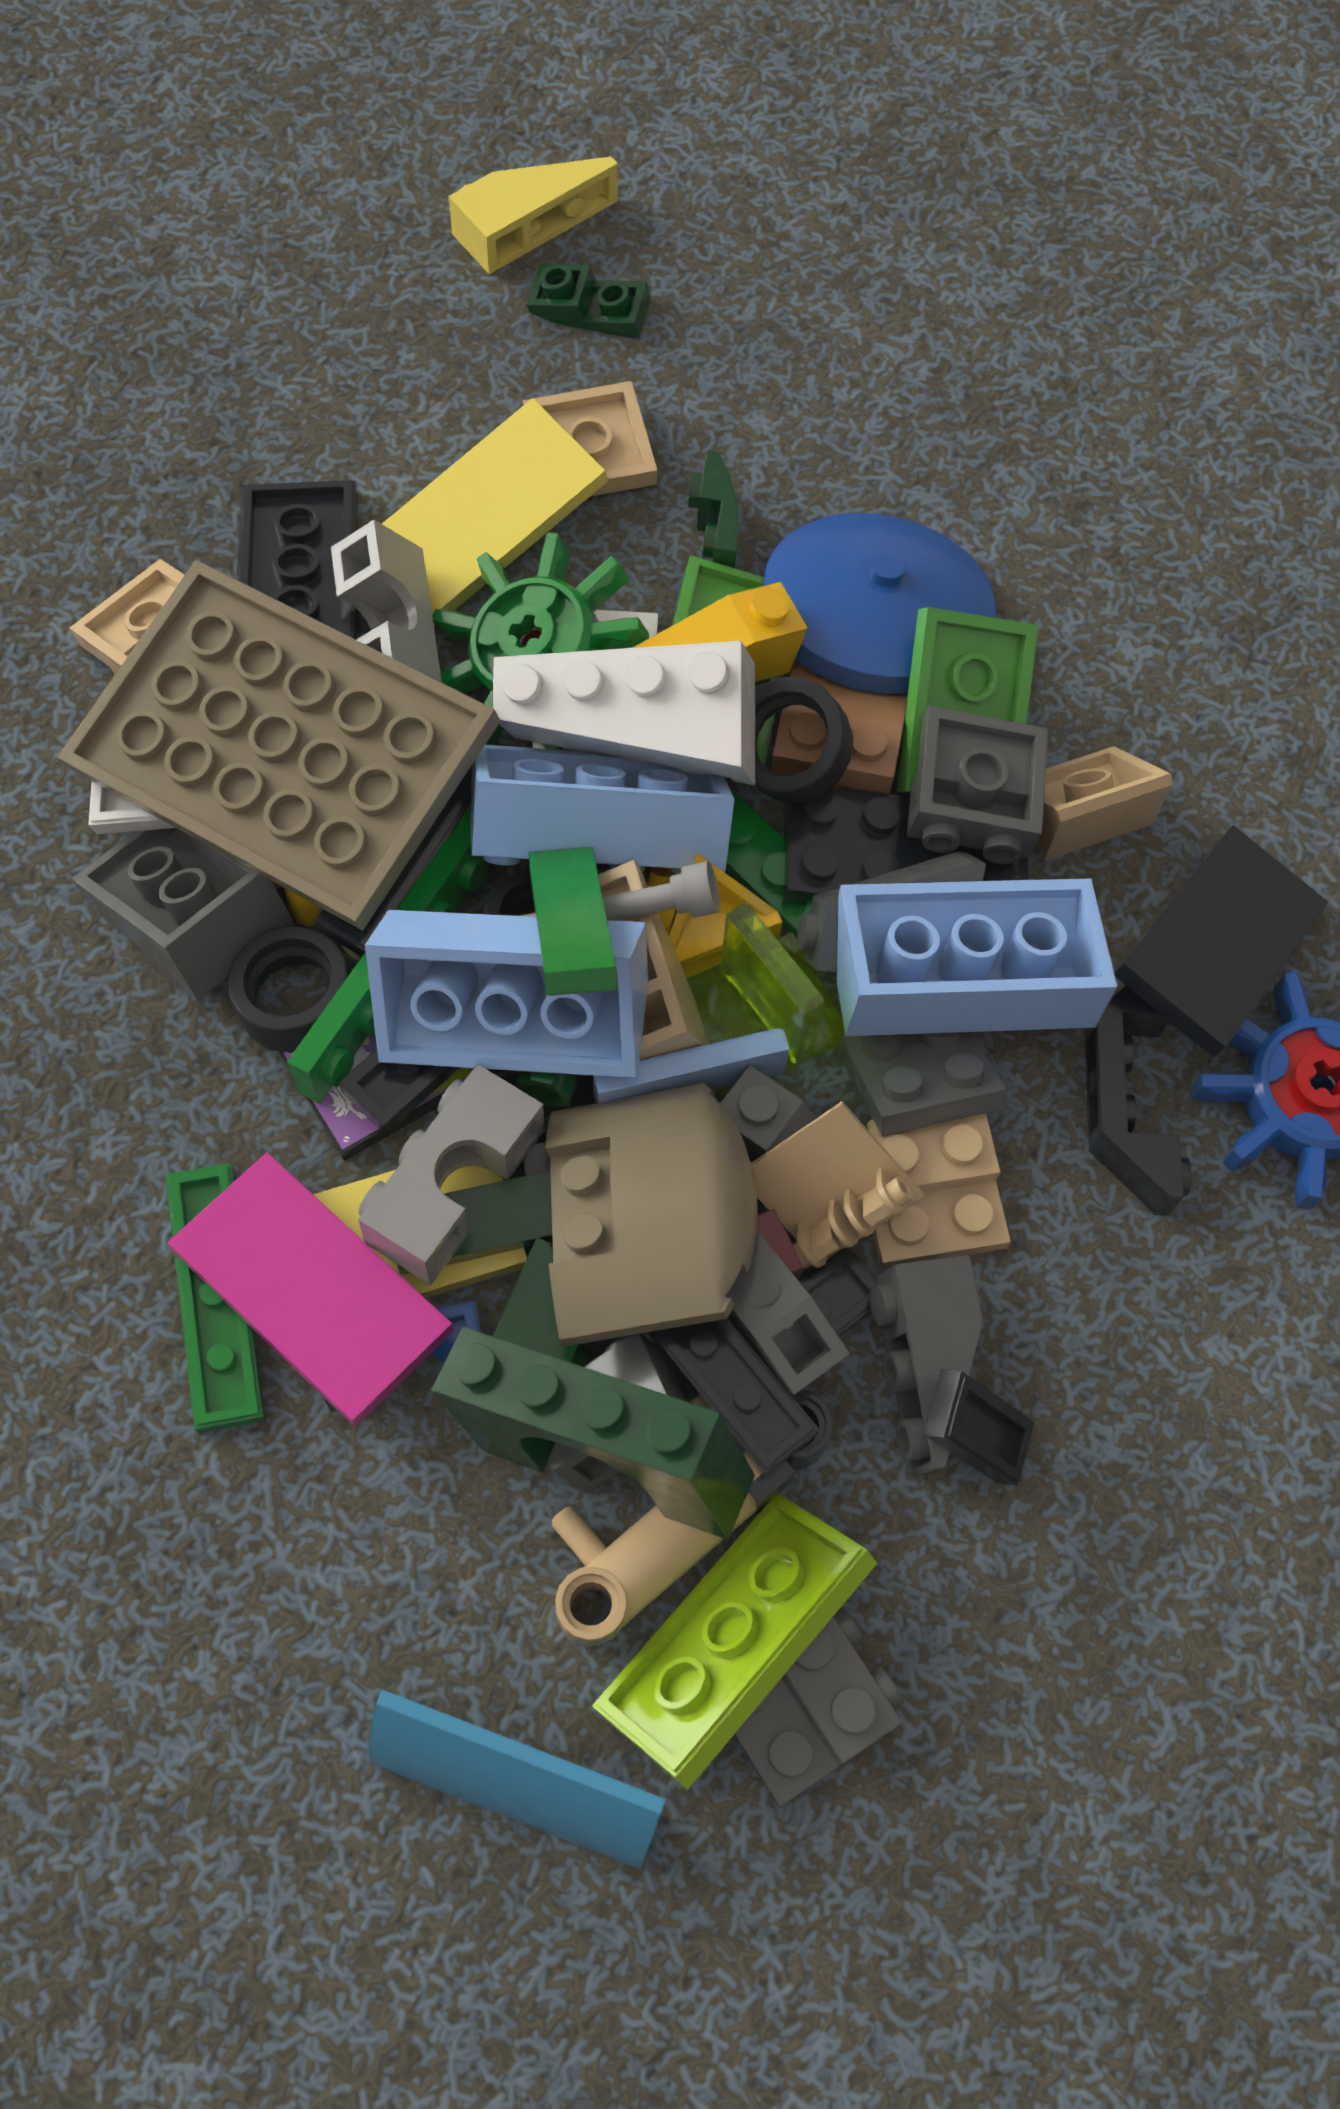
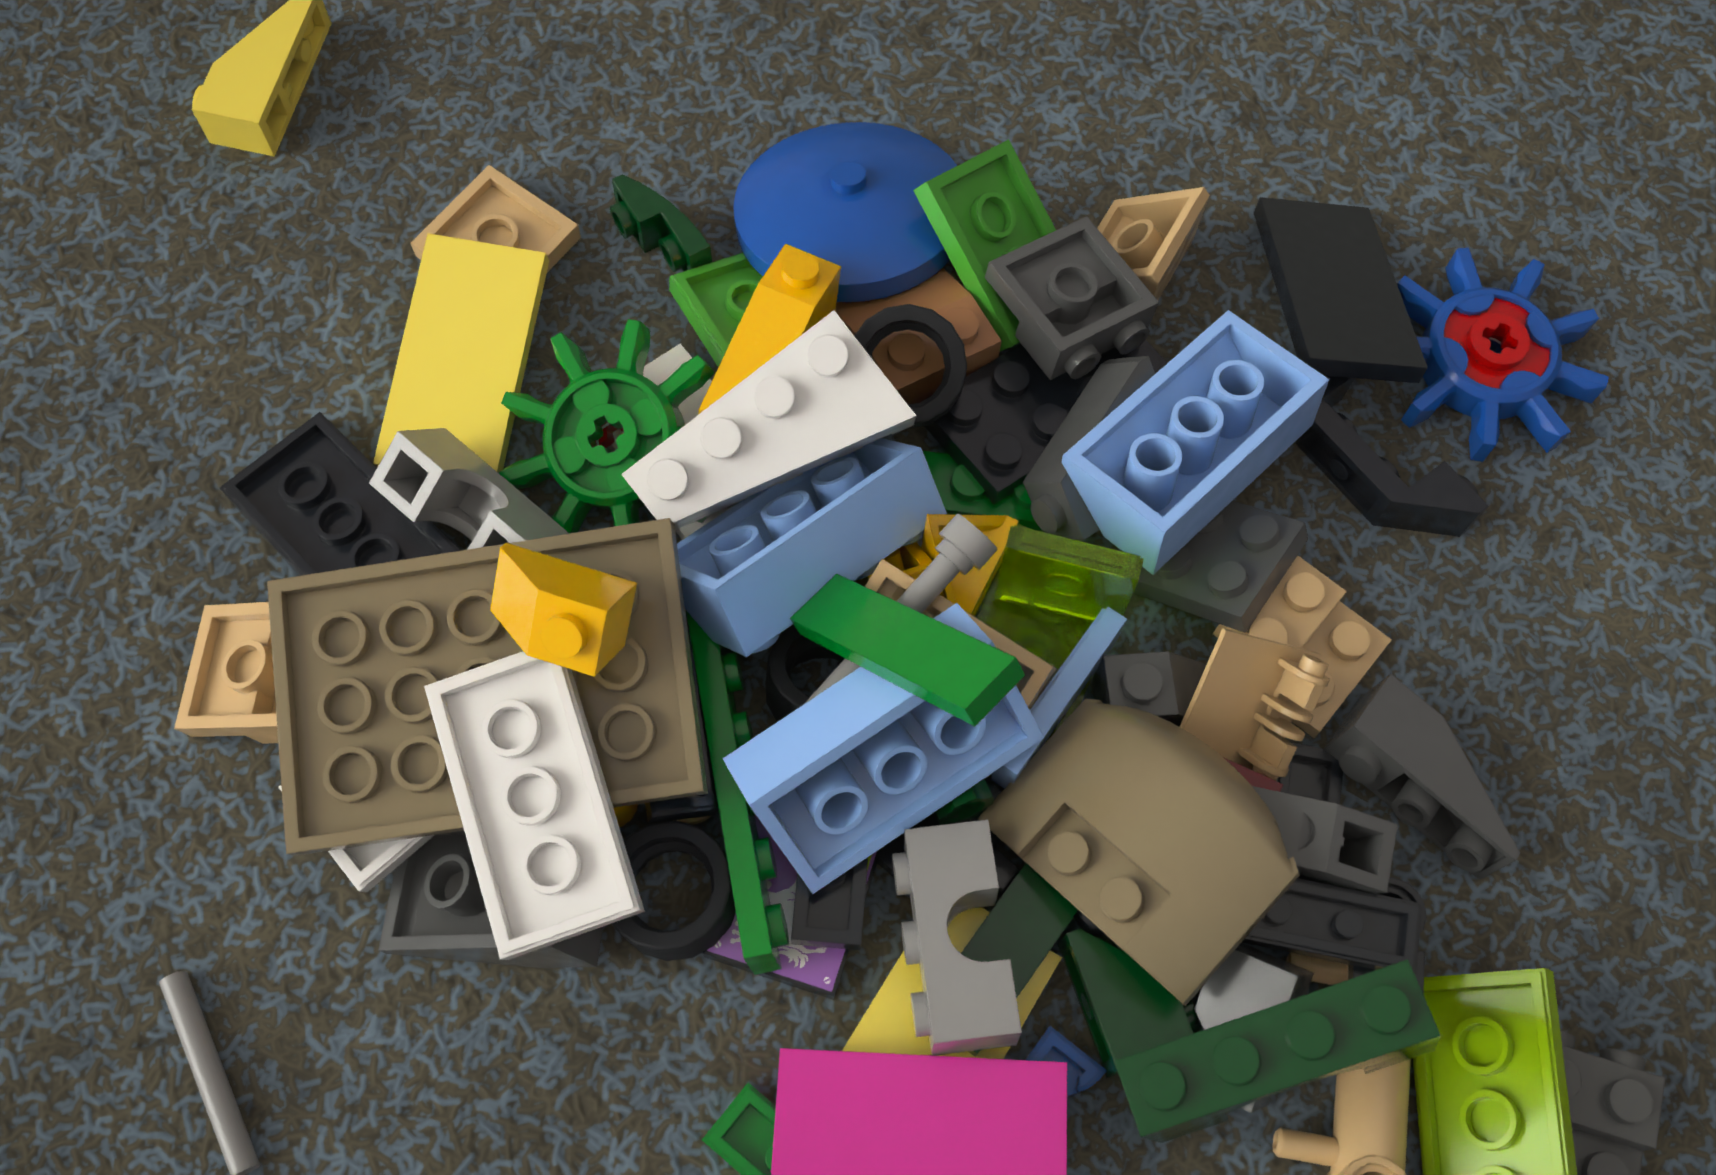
camera: 40 degrees left, 0 degrees up
(236, 837) = (532, 803): none -> white tile
(360, 717) = (561, 609): none -> yellow slope
(575, 299) = (371, 129): dark green slope -> none
(979, 1427) = (1512, 801): black tile -> none

